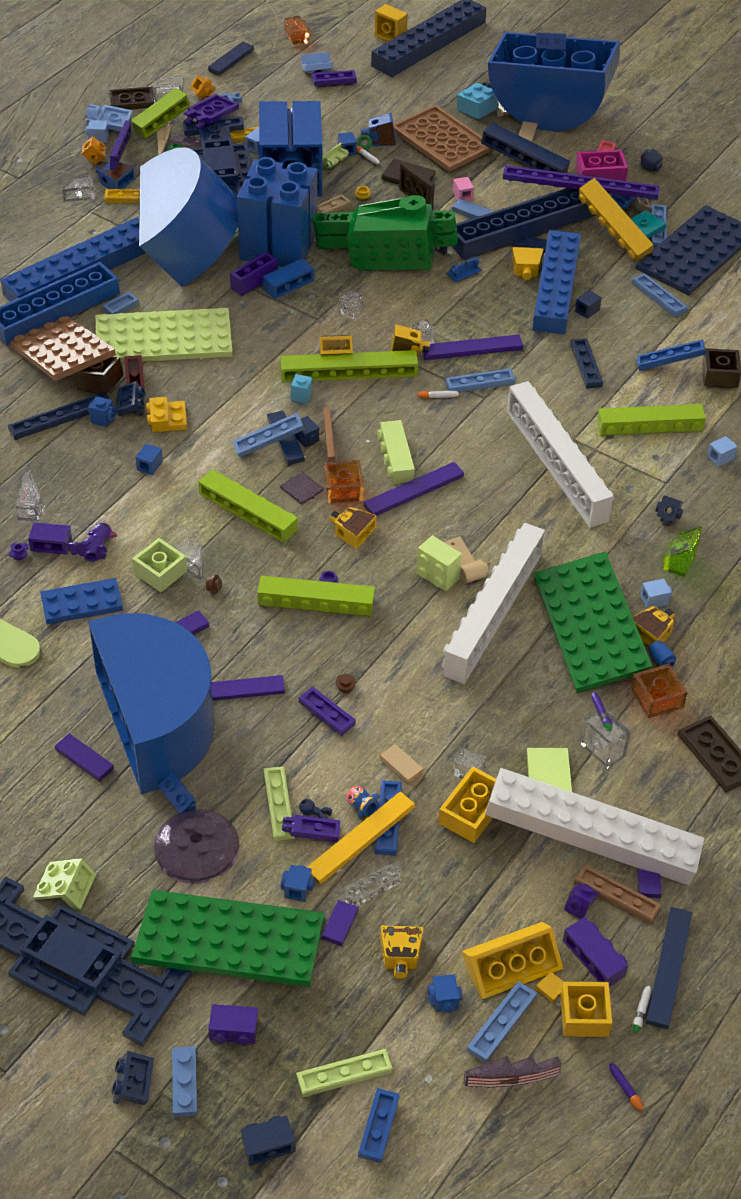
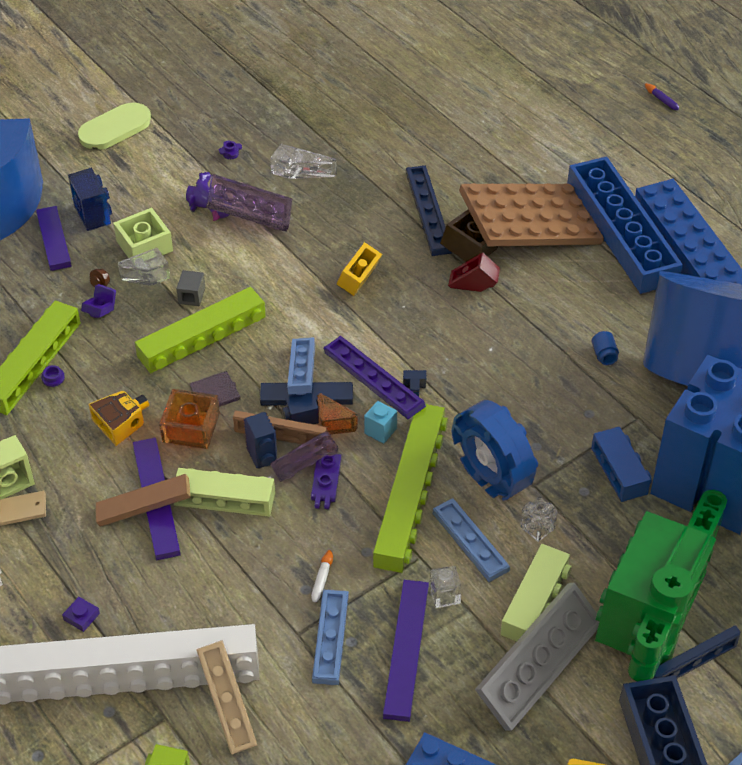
camera: 110 degrees right, 0 degrees up
(49, 538) = (234, 165): dark purple brick -> none
(81, 601) = (138, 183): blue plate -> none
(99, 507) = (249, 203): none -> clear purple plate
(102, 411) = (412, 235): blue brick -> none
(121, 304) = (617, 291): medium blue tile -> none
(128, 600) = (90, 198): none -> clear blue brick
(131, 398) = (426, 267): dark blue bracket -> none
(149, 459) = (317, 262): blue brick -> none
(153, 429) = (359, 269): none -> yellow brick
(166, 415) = (390, 293): yellow plate -> none
(167, 334) = (542, 322): yellowish green plate -> none
(185, 298) = (605, 347): none -> blue brick
(204, 524) = (191, 288): none -> dark grey brick
(242, 575) = (101, 303): none -> dark purple bracket
(251, 274) = (628, 413): dark purple brick -> none
(254, 381) = (414, 380): none -> dark blue tile
(261, 400) = (374, 377): none -> dark purple tile
(308, 409) = (335, 416): none -> clear orange slope
(318, 313) = (494, 449): none -> blue piece
(336, 344) = (446, 468): yellow torso -> none
(350, 436) = (260, 439): none -> dark blue brick
(351, 417) = (304, 456): none -> clear purple plate
(359, 410) = (326, 480): none -> dark purple hinge
(377, 335) = (471, 540): none -> medium blue tile
(408, 298) = (536, 590): none -> yellowish green brick
(408, 339) = (423, 553): torso -> none
(427, 484) = (142, 500): none -> medium nougat tile
(459, 288) = (538, 657): none -> light grey plate
(462, 270) = (589, 692): blue hinge -> none
(525, 497) = (81, 614): none -> dark purple plate
(557, 396) = (227, 697): none -> tan tile

